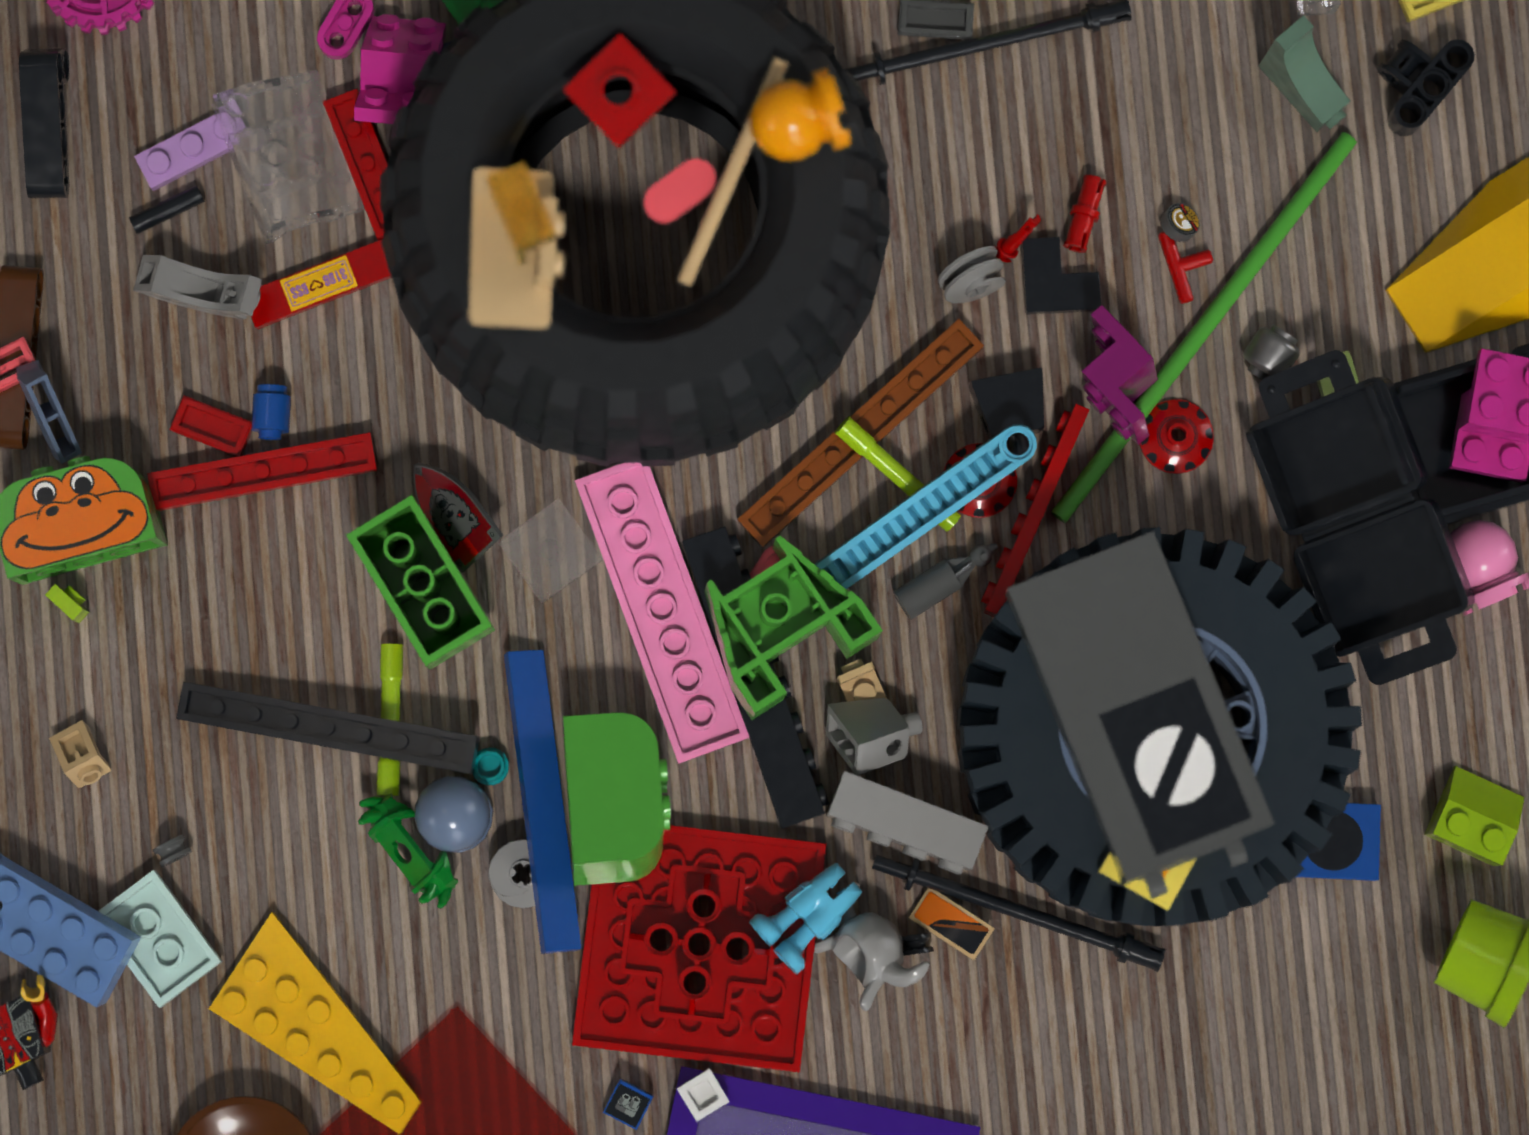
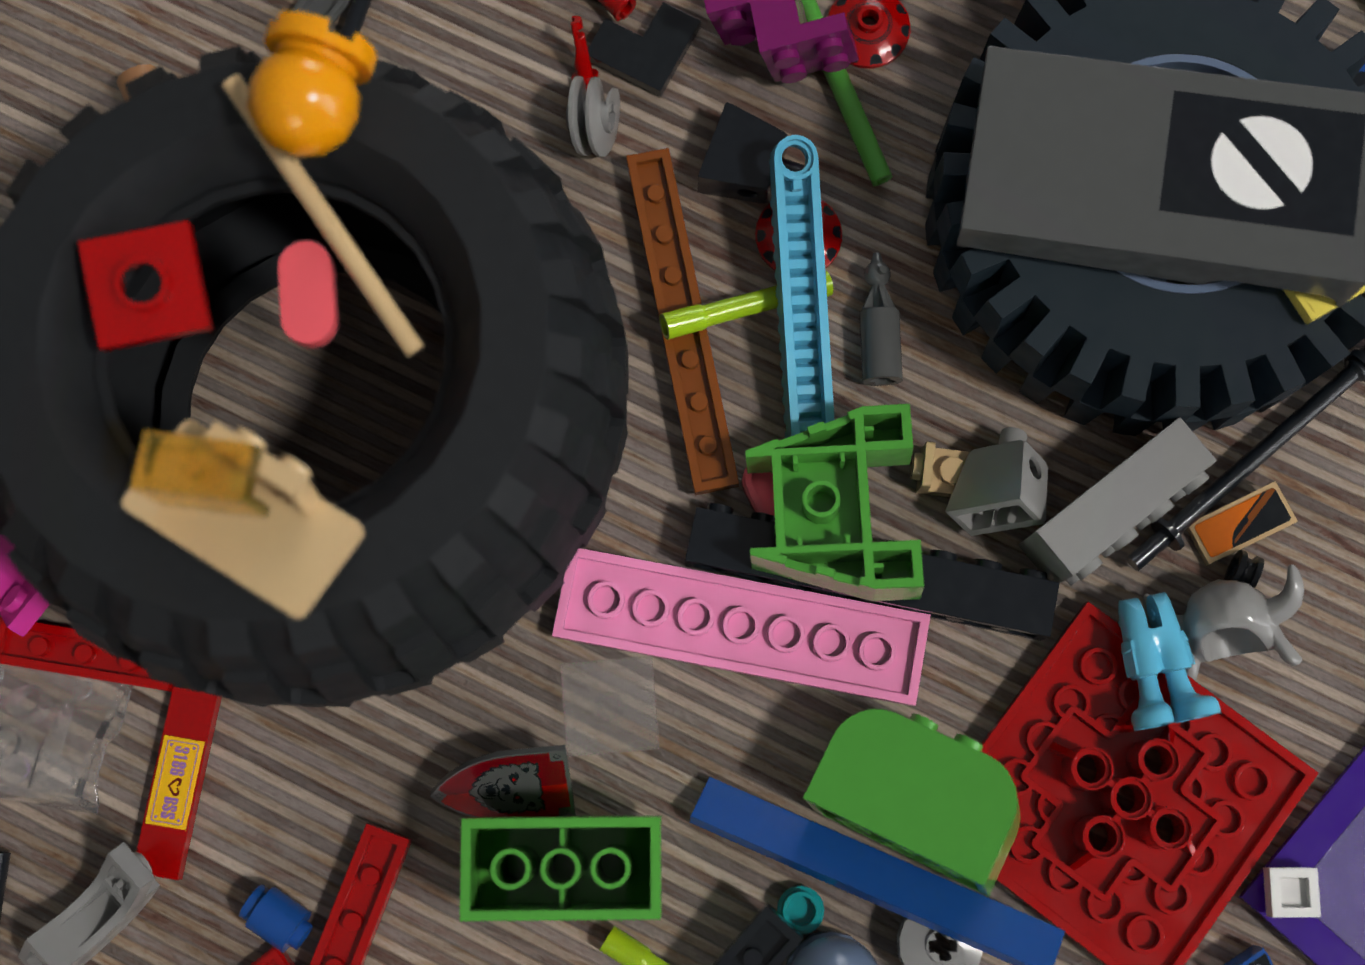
camera: 50 degrees left, 5 degrees down
(1040, 495) = (873, 207): red plate -> none

